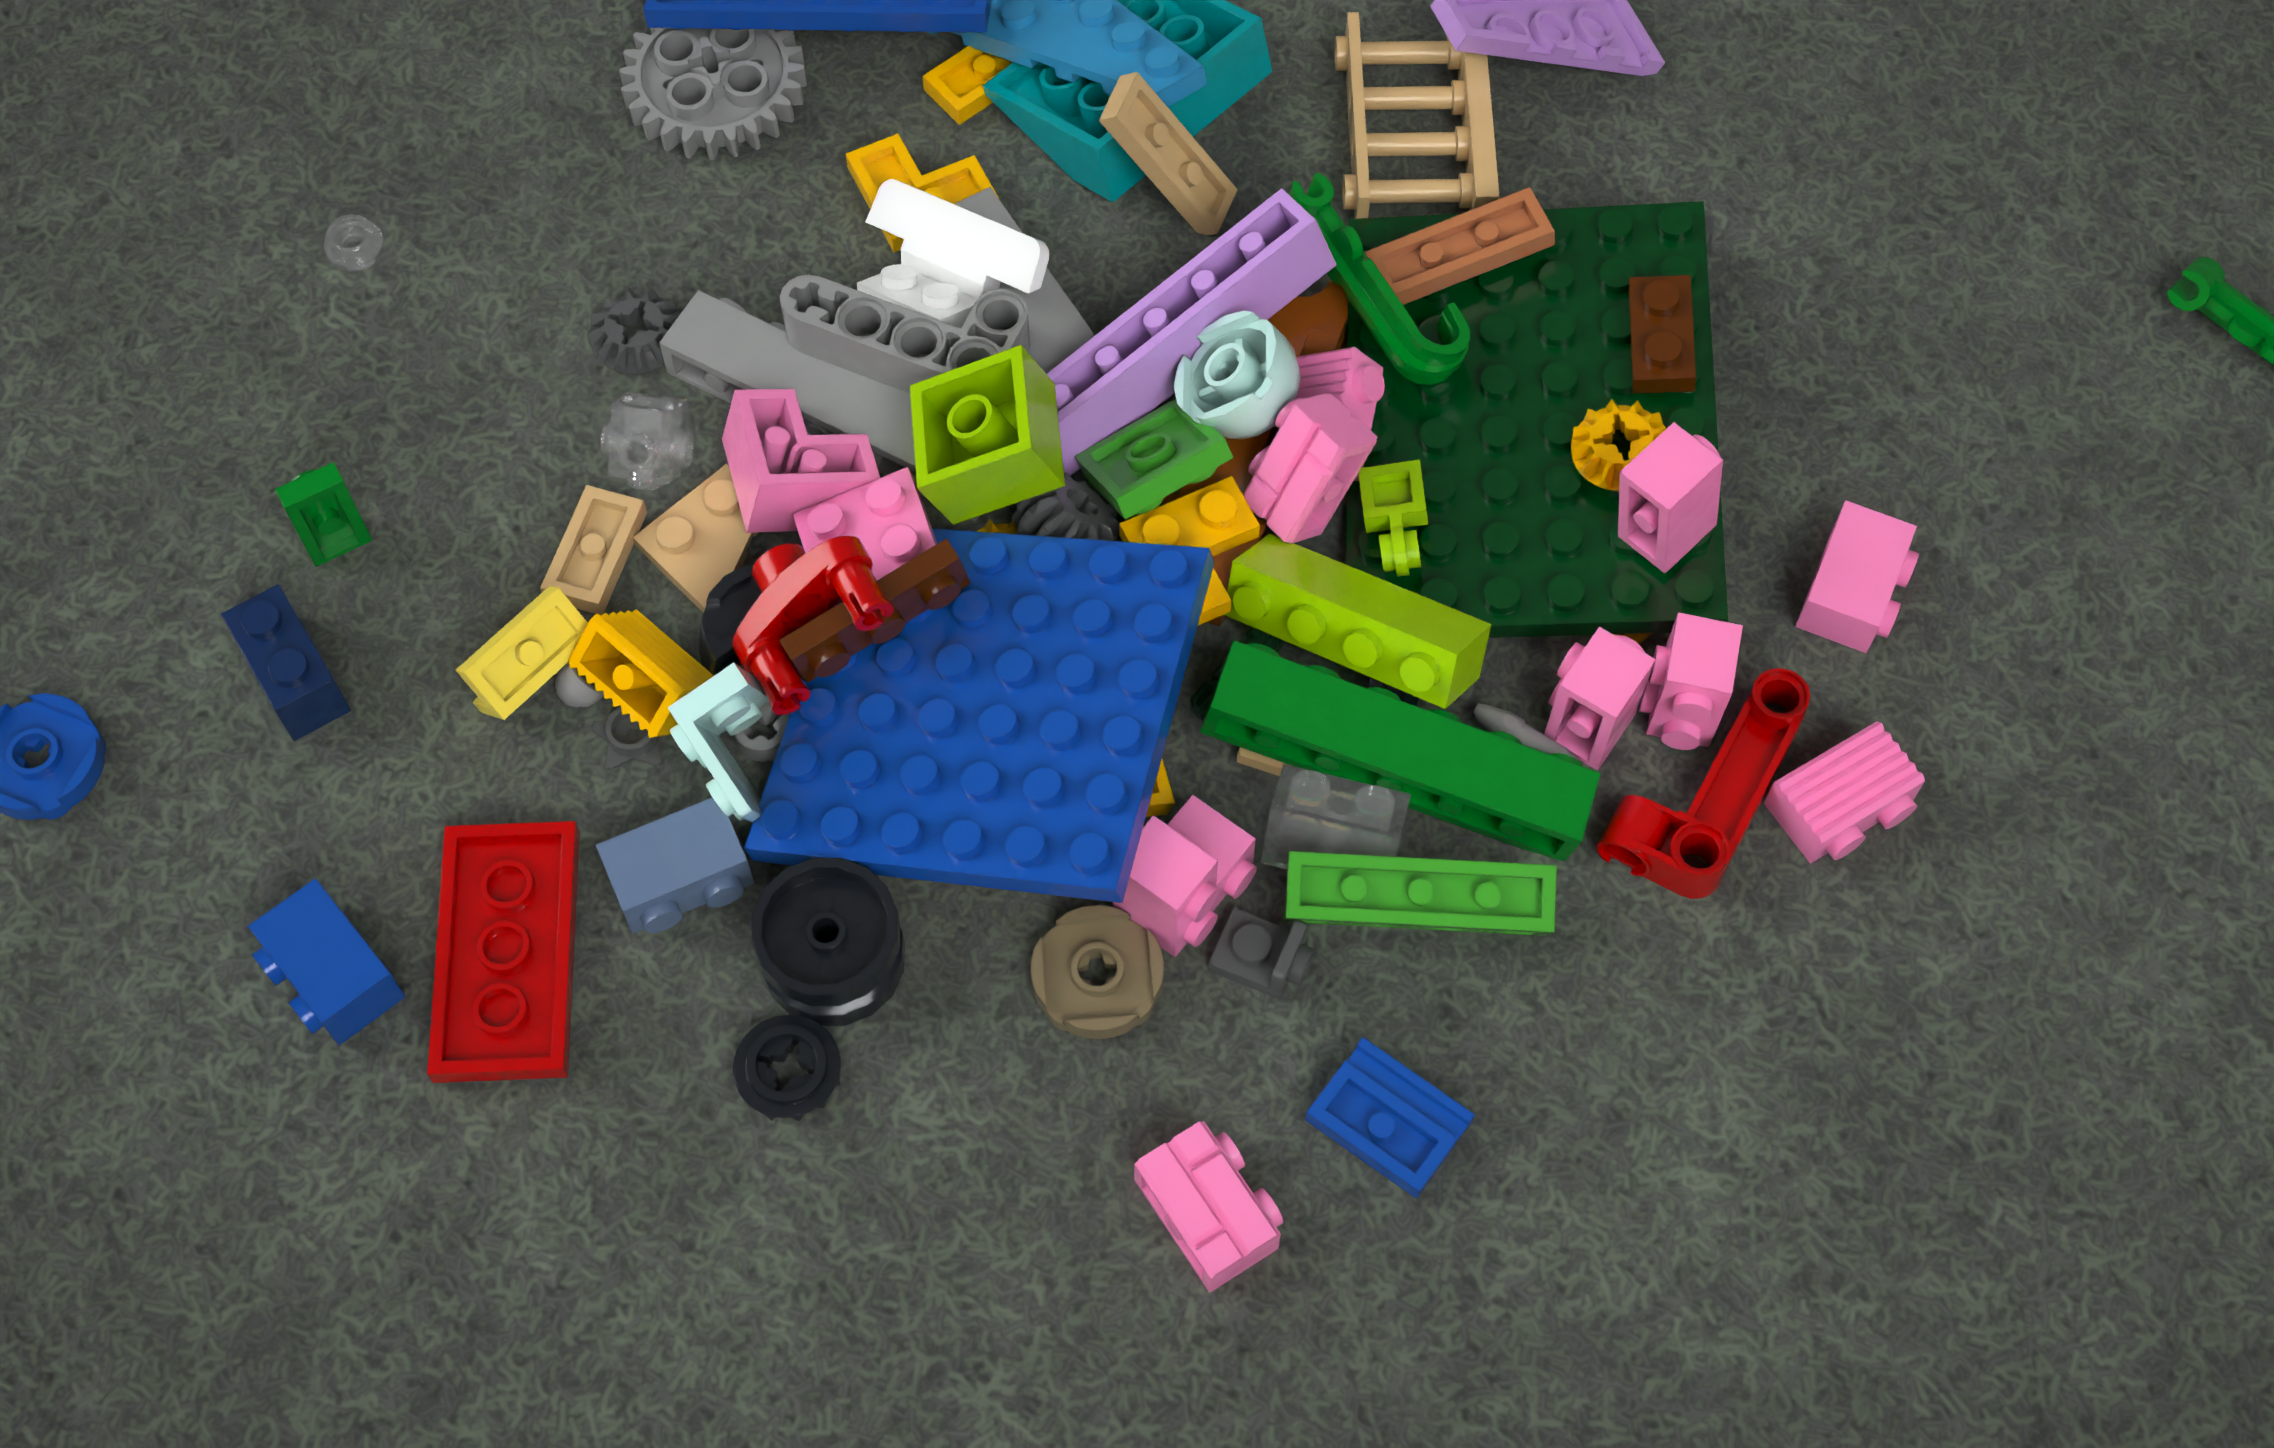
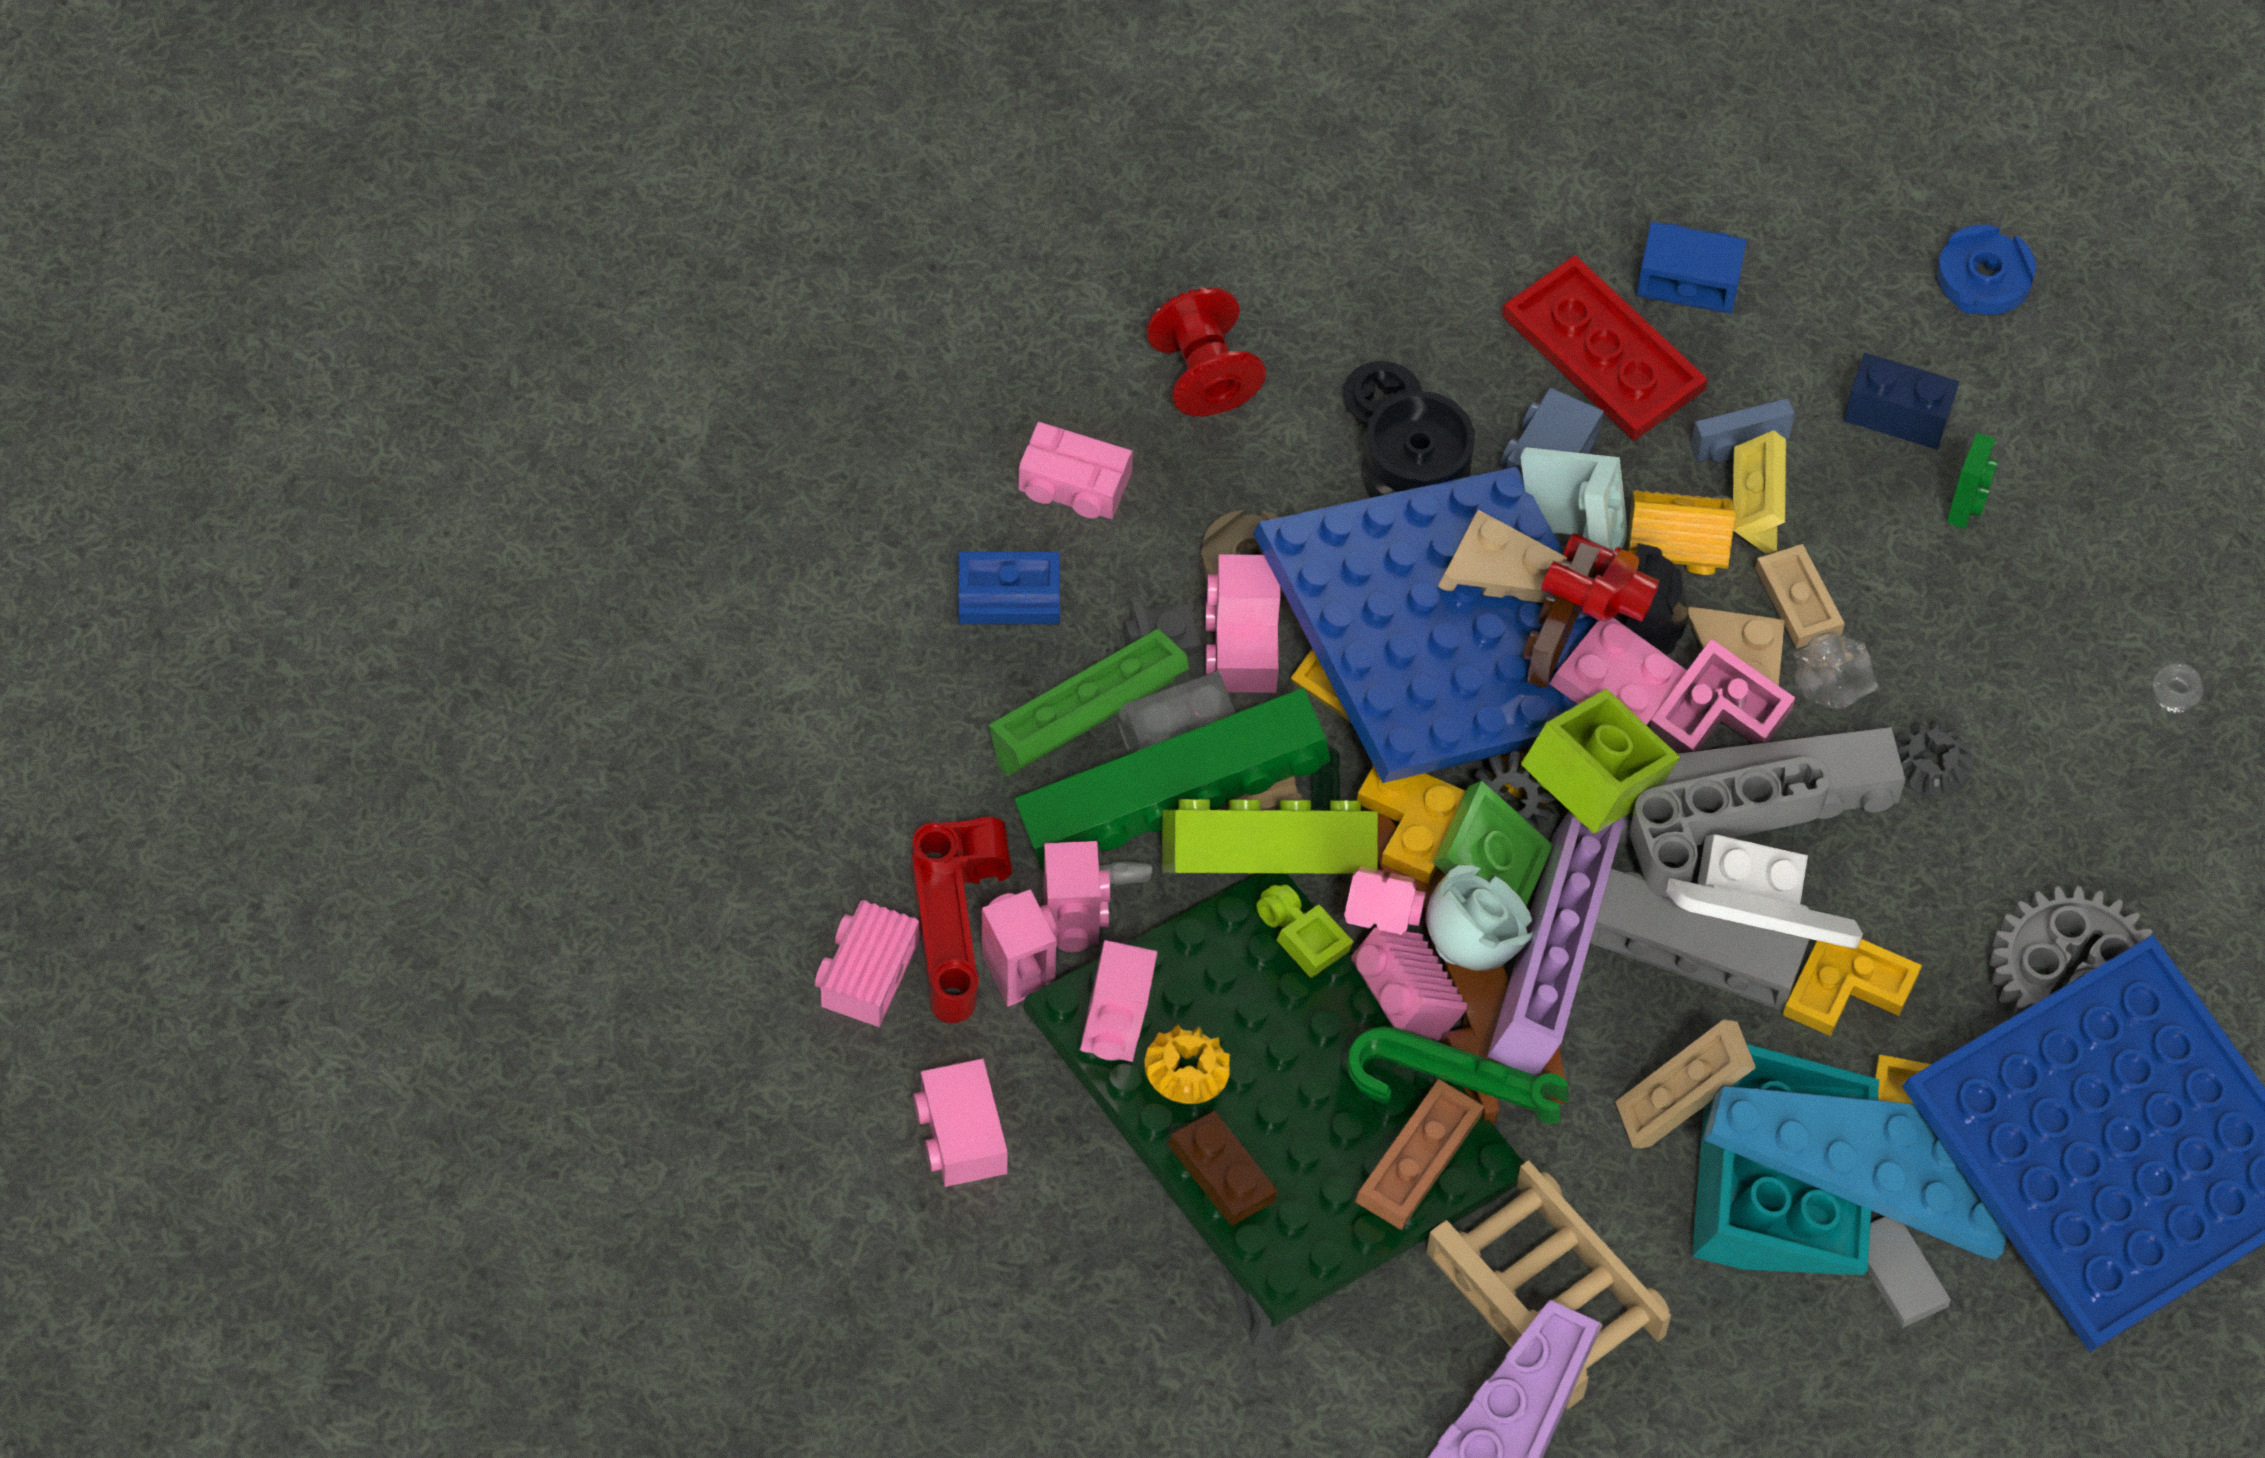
camera: 140 degrees right, 5 degrees down
(454, 741) = (1718, 435): none -> sand blue plate
(884, 715) = (1500, 561): none -> tan wing
(950, 1228) = (1197, 327): none -> red hose

